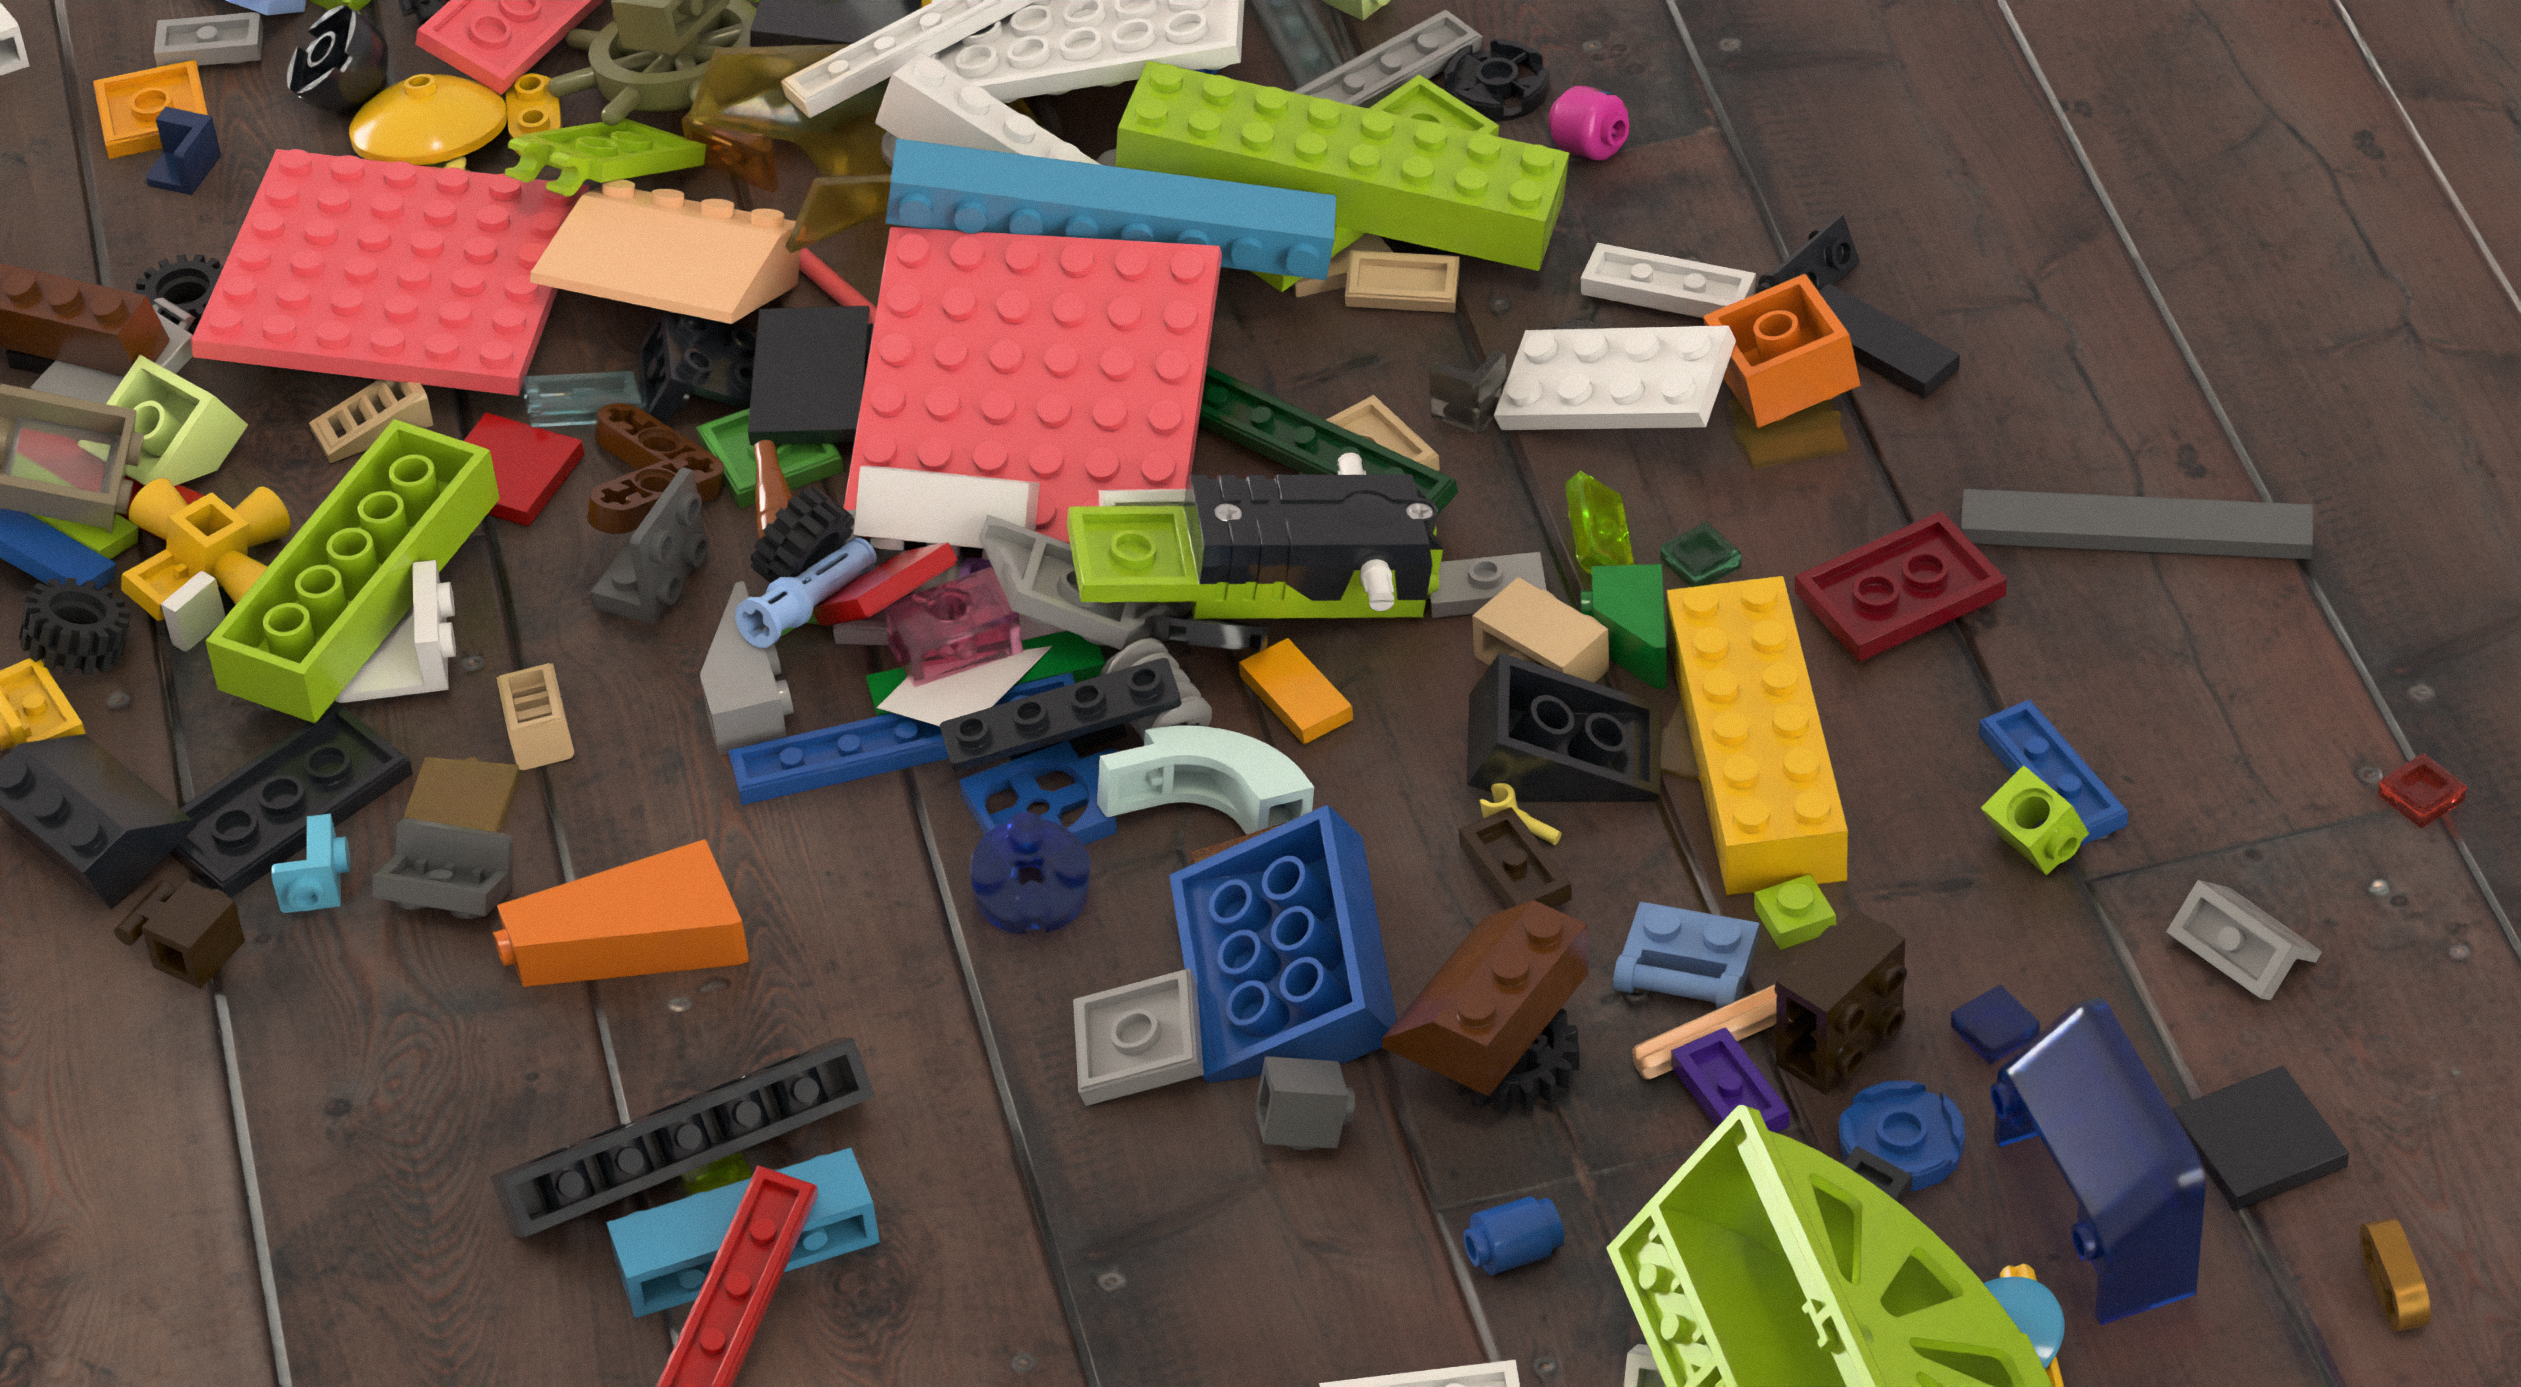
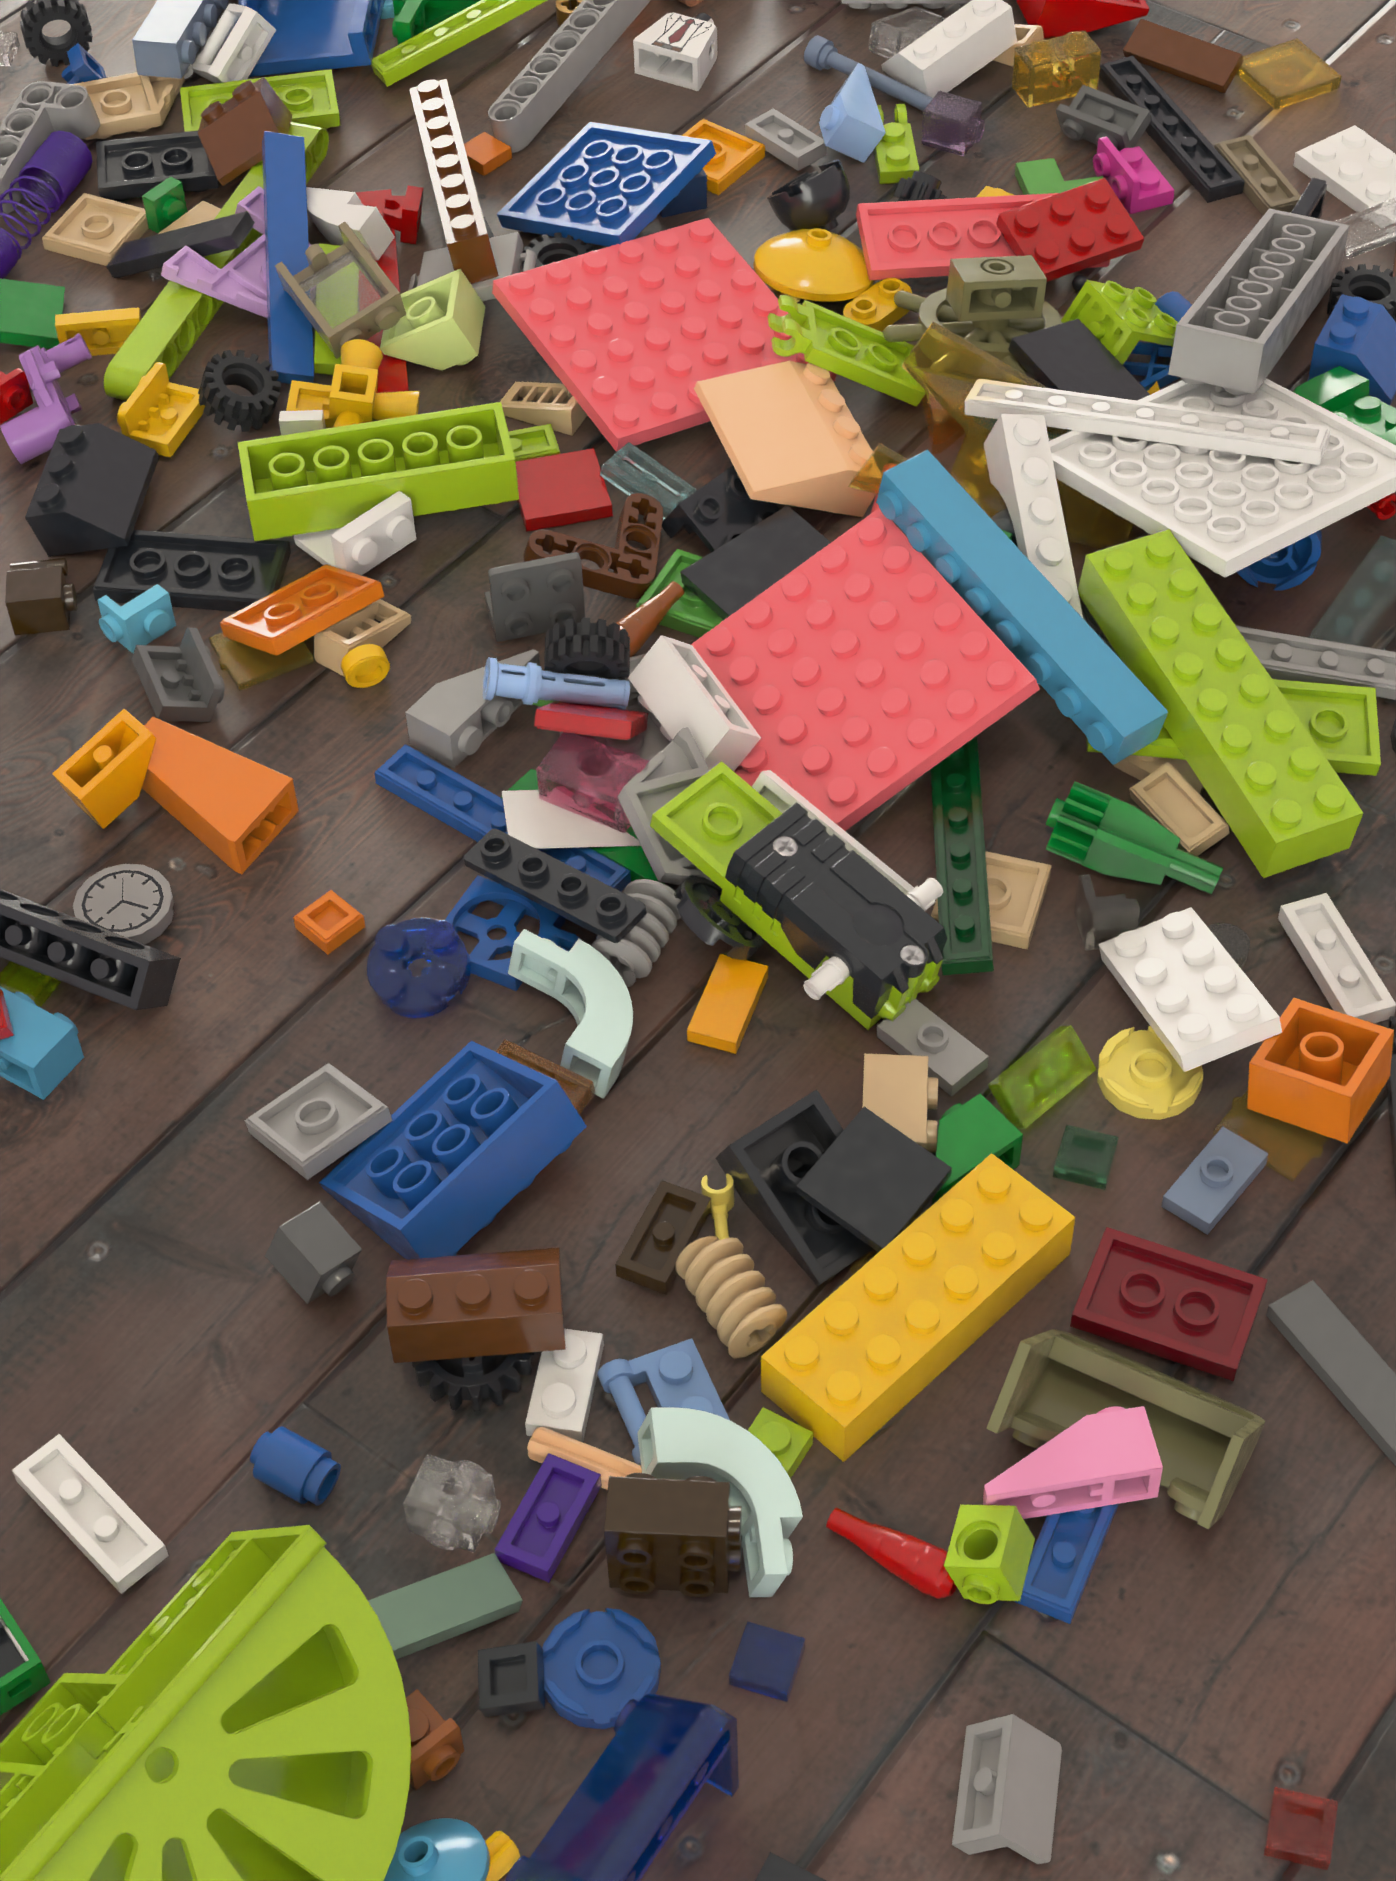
camera: 50 degrees right, 5 degrees up
(129, 188) = (607, 184): none -> blue plate
(463, 732) = (301, 609): none -> orange tile
(535, 968) = (109, 768): none -> light orange slope
(592, 726) = (365, 666): none -> yellow tile
(697, 1054) = (126, 901): none -> light grey tile
(891, 920) = (329, 922): none -> orange tile
(1402, 331) = (1122, 841): none -> green piece
(1609, 1020) = (566, 1385): none -> white plate
(1620, 678) = (873, 1180): none -> black tile
(1626, 845) = (731, 1293): none -> tan piece
(1656, 468) = (1144, 1078): none -> light yellow tile
(1660, 1134) = (452, 1503): none -> clear brick
(1790, 923) = (699, 1443): none -> light aqua arch
(1805, 491) = (1215, 1180): none -> sand blue plate
(1981, 883) = (900, 1553): none -> red piece
(2015, 657) = (1197, 1434): none -> olive windscreen
(2023, 701) = (1089, 1465): none -> bright pink slope

